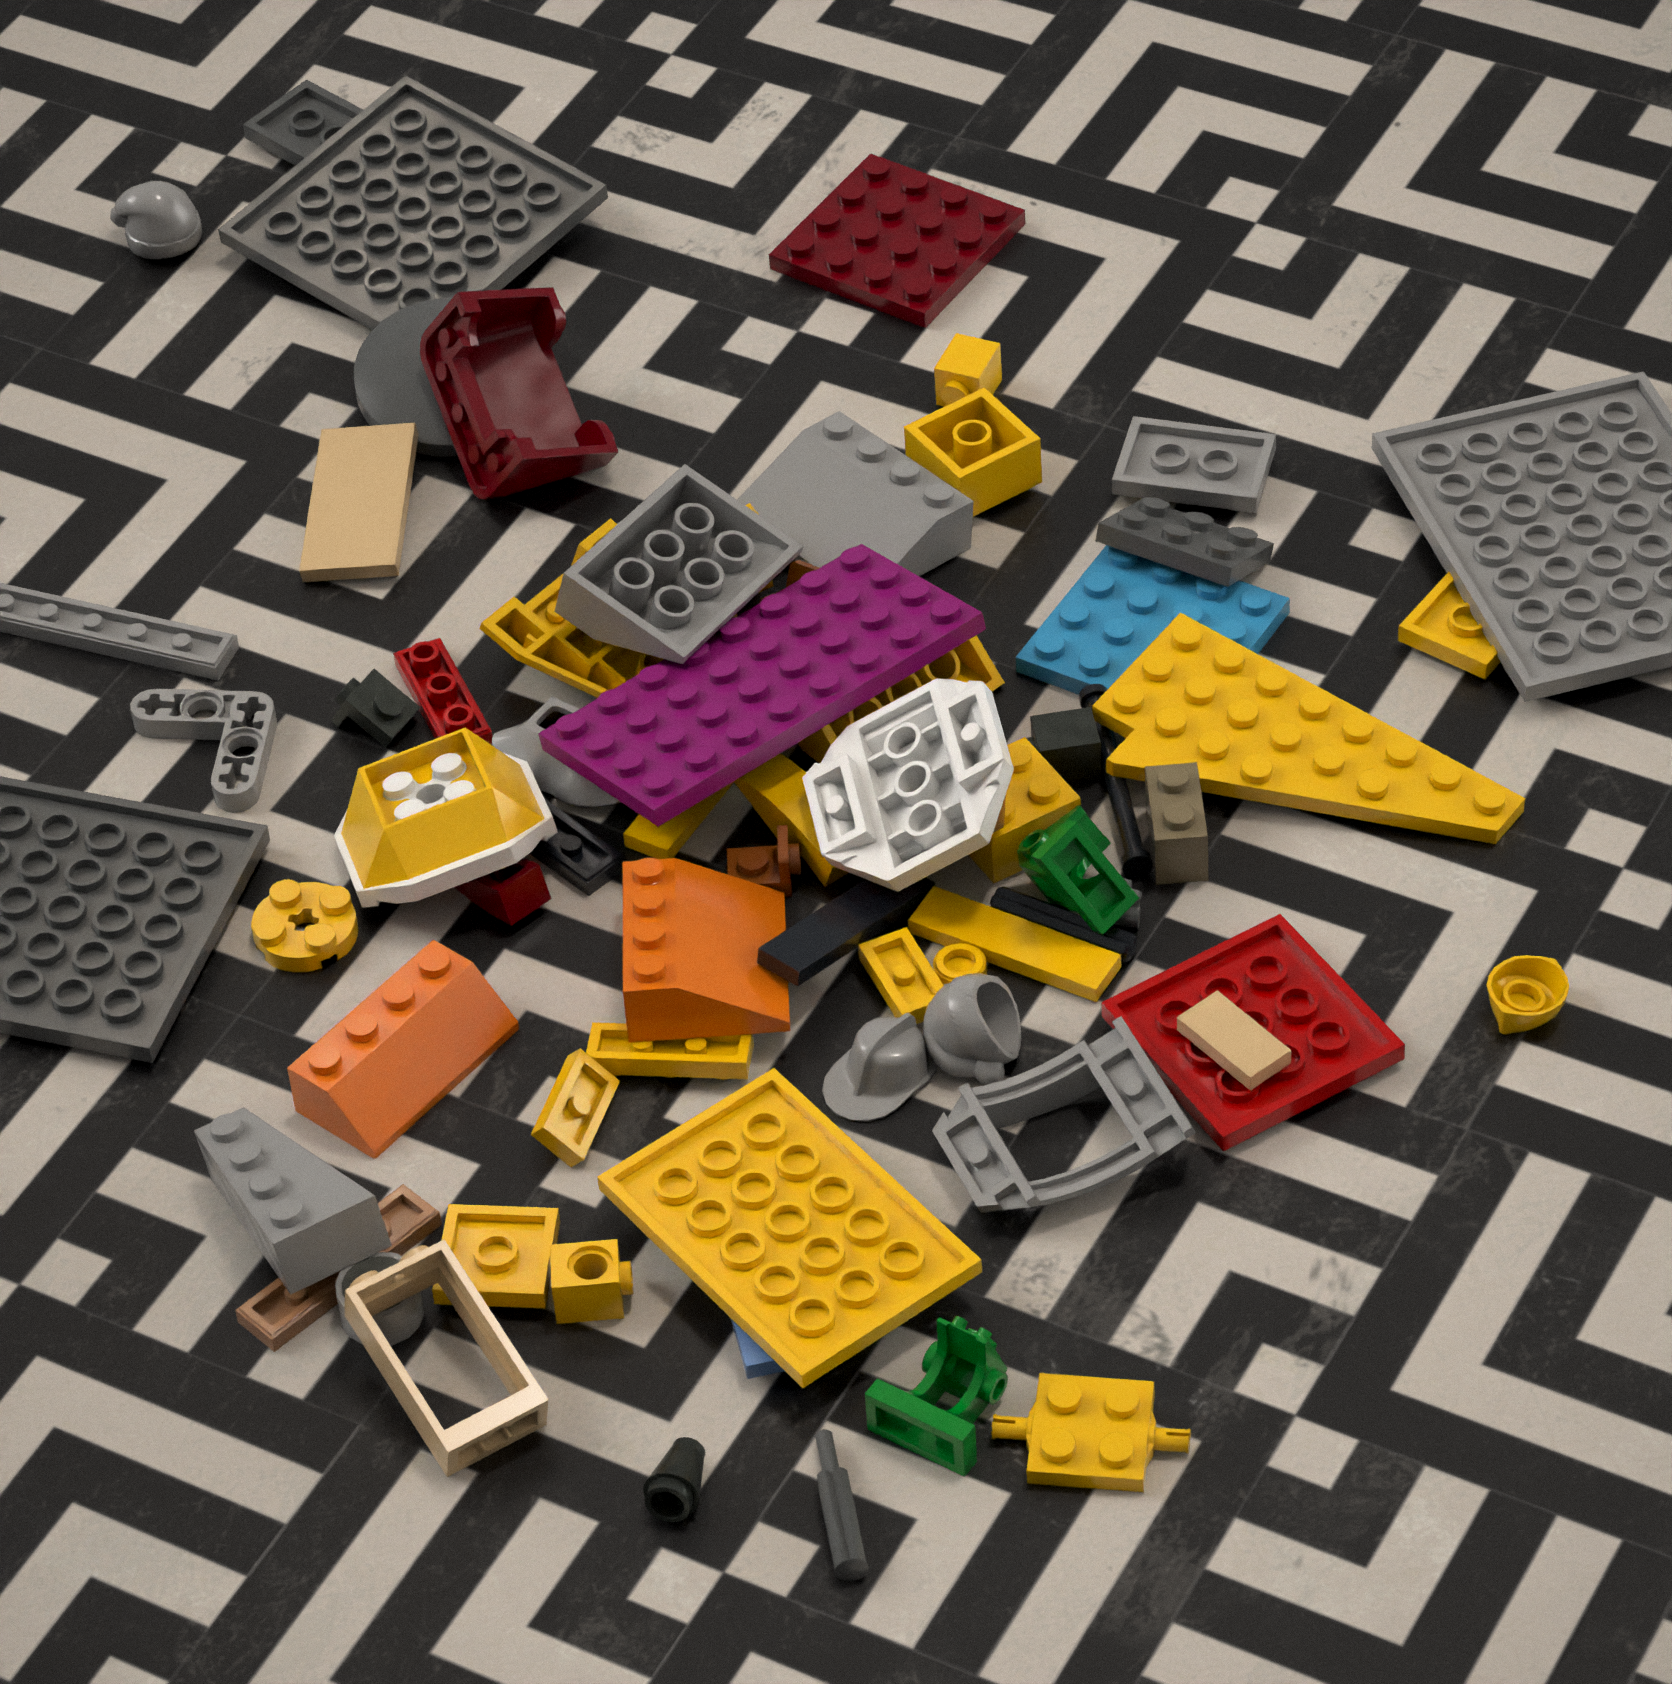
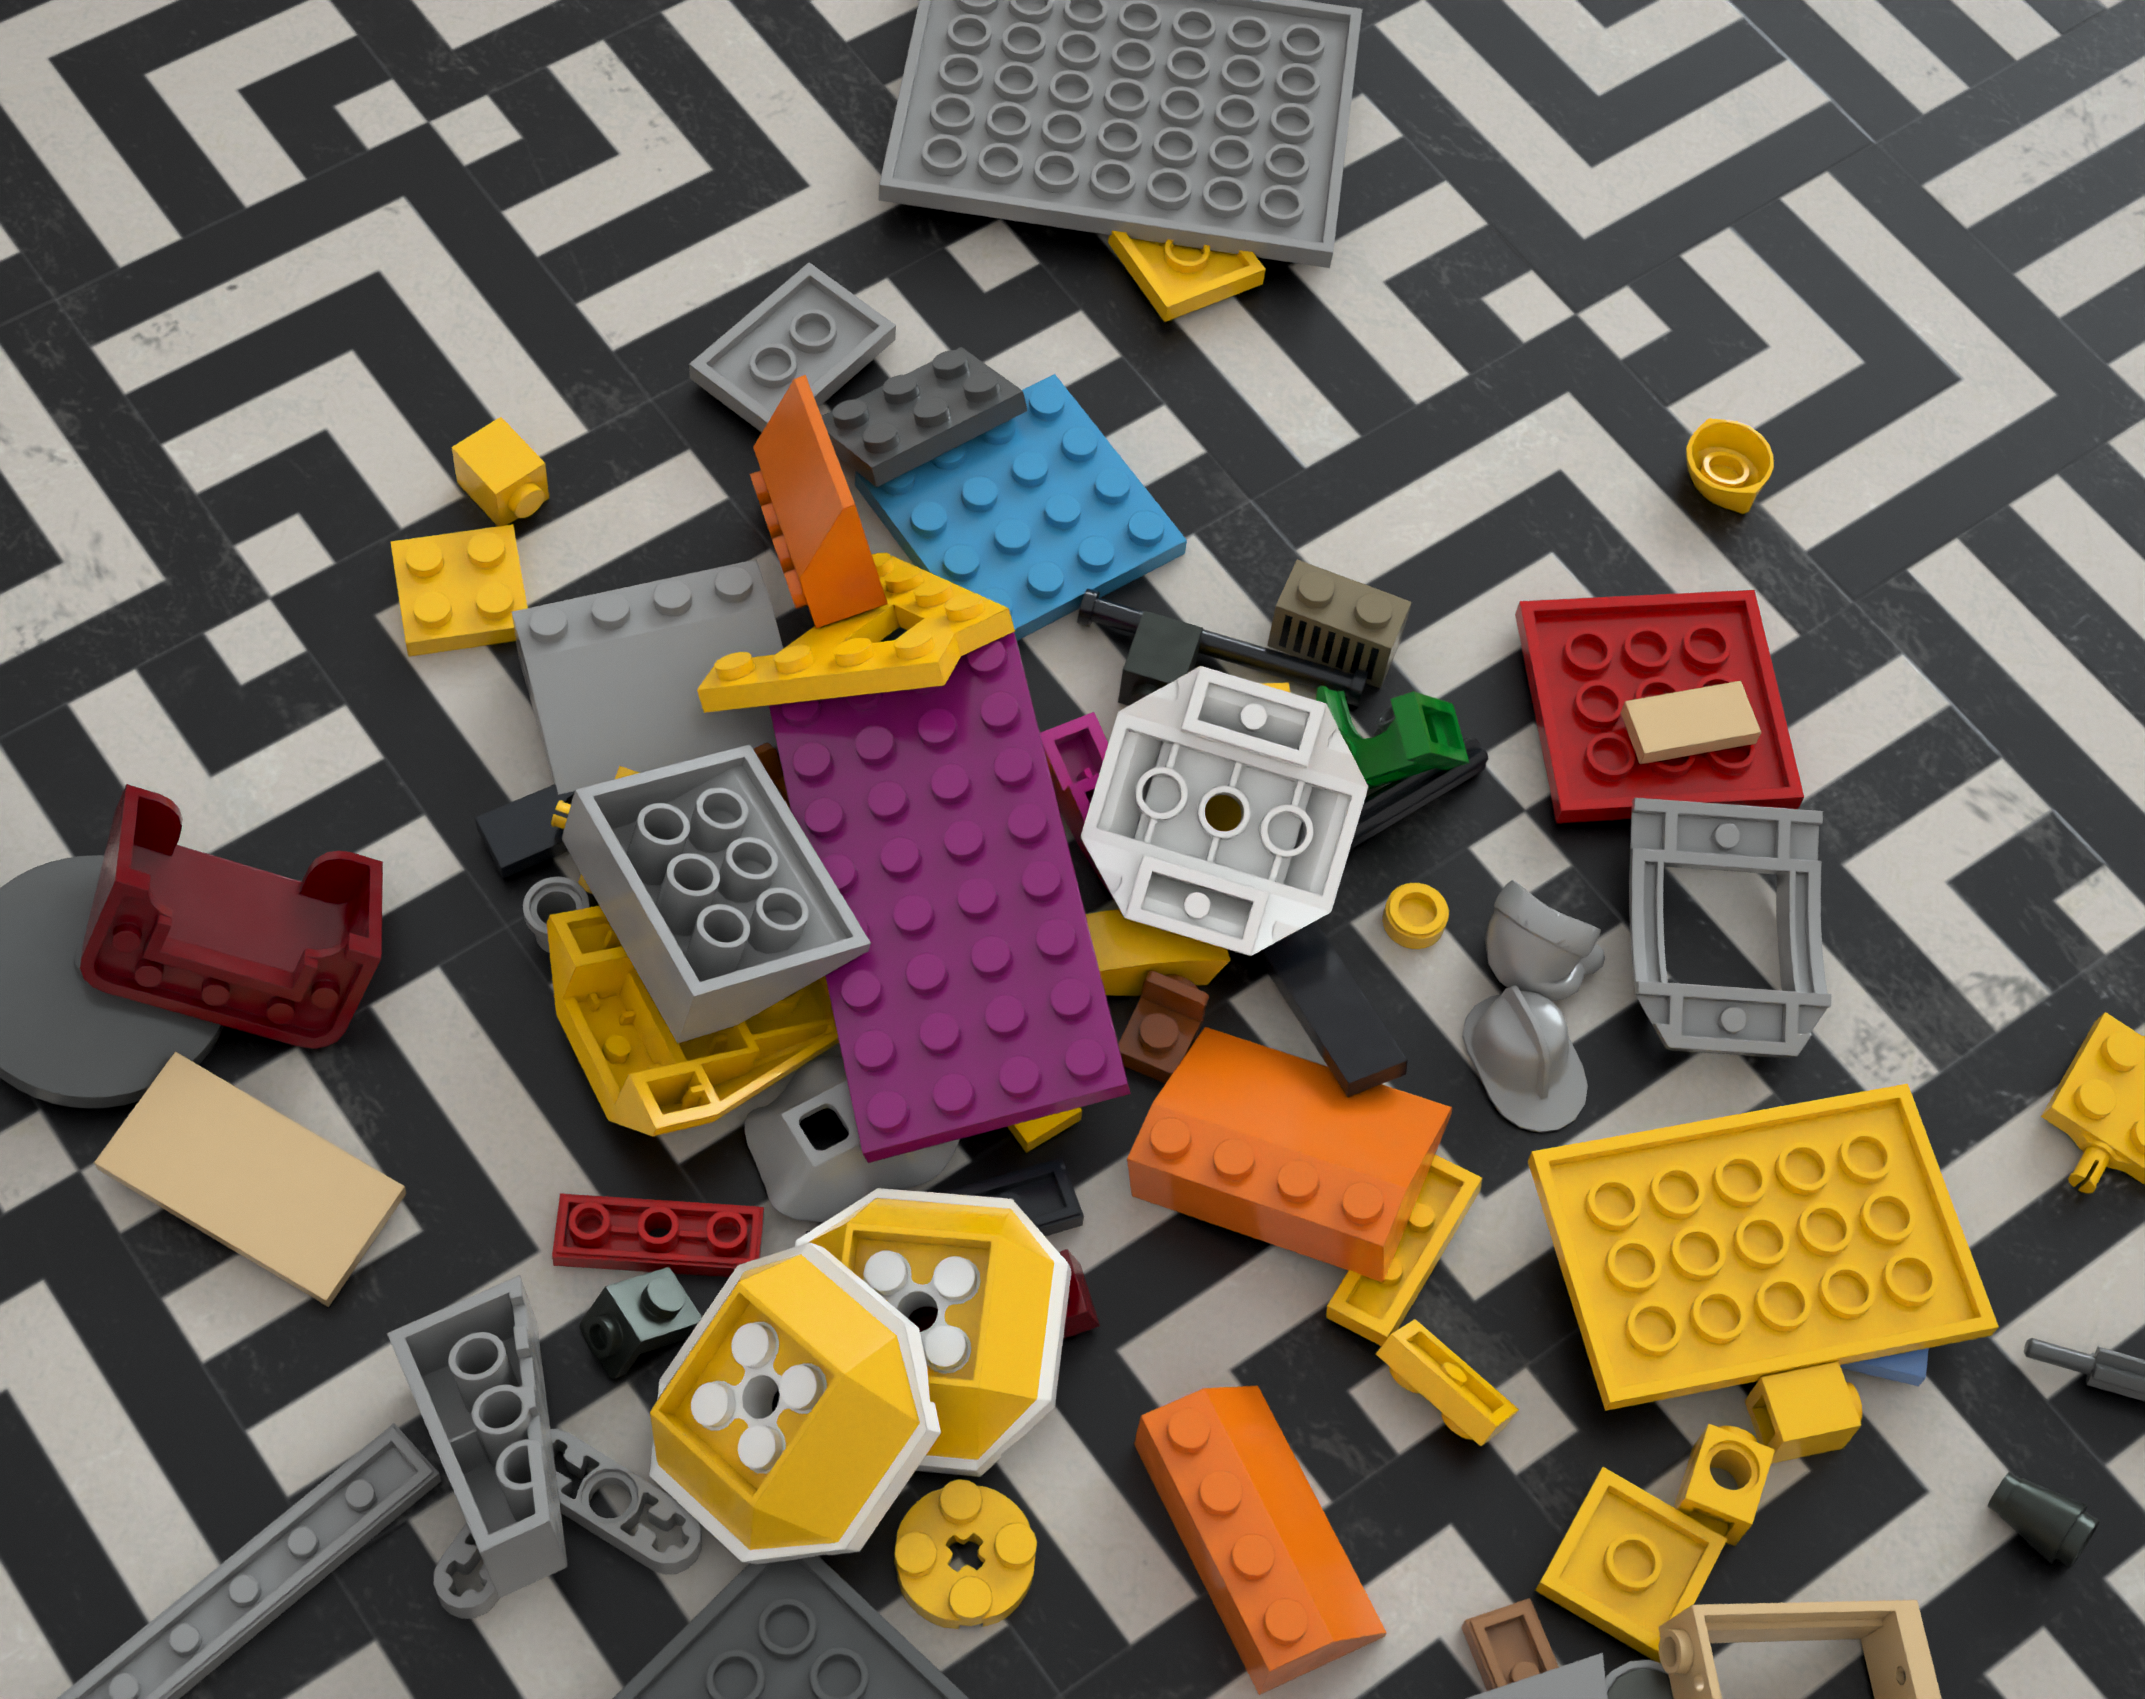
camera: 75 degrees left, 15 degrees up
(239, 654) = (488, 1417): none -> light grey wedge
(324, 762) = (846, 1418): none -> yellow piece
(674, 1308) = (1804, 1411): none -> yellow brick
(869, 395) = (458, 589): none -> yellow plate
(897, 240) = (198, 434): dark red plate -> none
(900, 973) = (1417, 970): yellow plate -> none
(933, 568) = (848, 656): none -> yellow plate
(958, 1364) = (2076, 1233): green tile -> none
(977, 449) = (654, 518): yellow brick -> none
(1016, 943) = (1422, 843): yellow tile -> none
(1028, 500) = (813, 513): none -> orange slope
(1286, 741) = (1240, 496): yellow wing -> none

